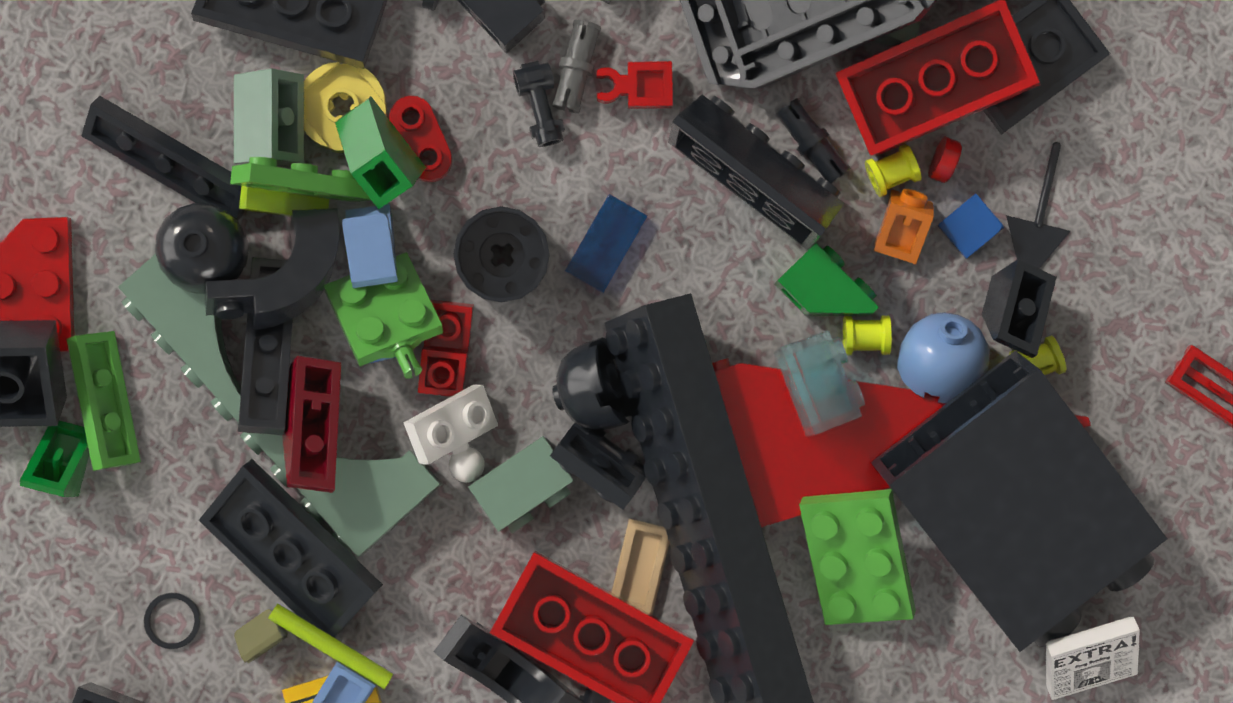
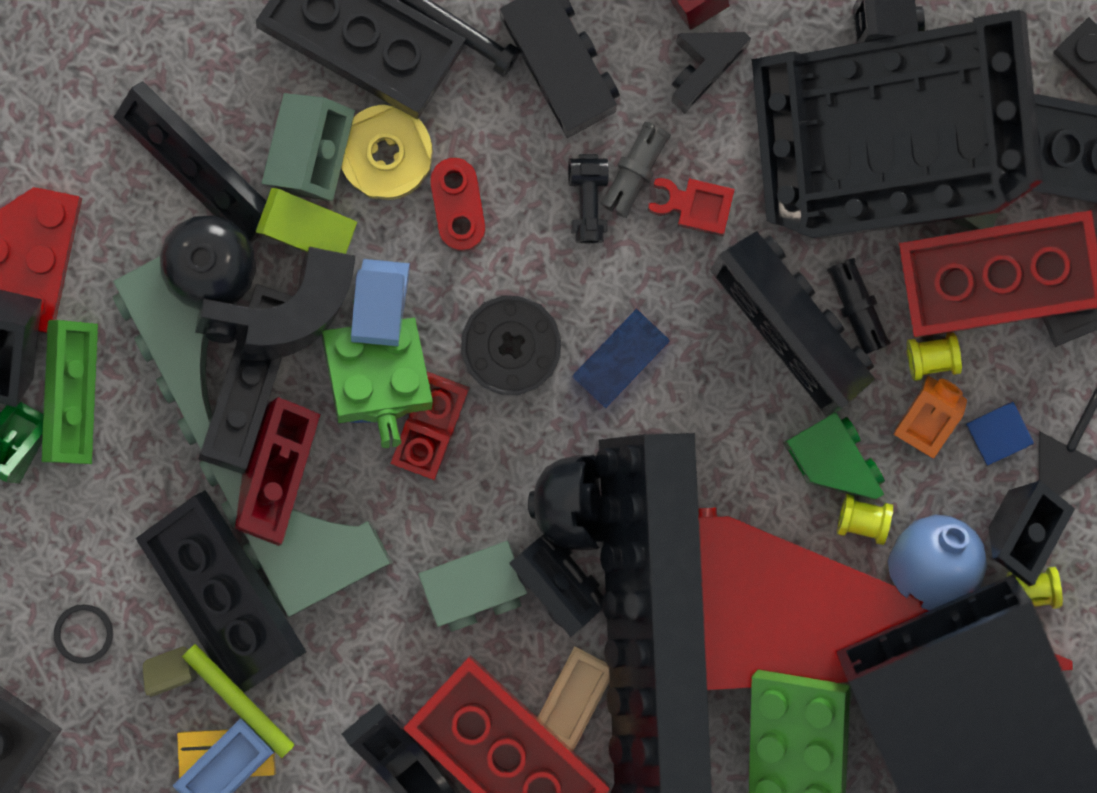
camera: 25 degrees right, 0 degrees up
(300, 179) = (327, 218): bright green plate -> none
(377, 153) = (410, 210): green slope -> none
(450, 428) = (414, 509): white plate -> none
(819, 382) = (804, 558): clear light blue slope -> none
(945, 159) = (990, 359): red tile -> none

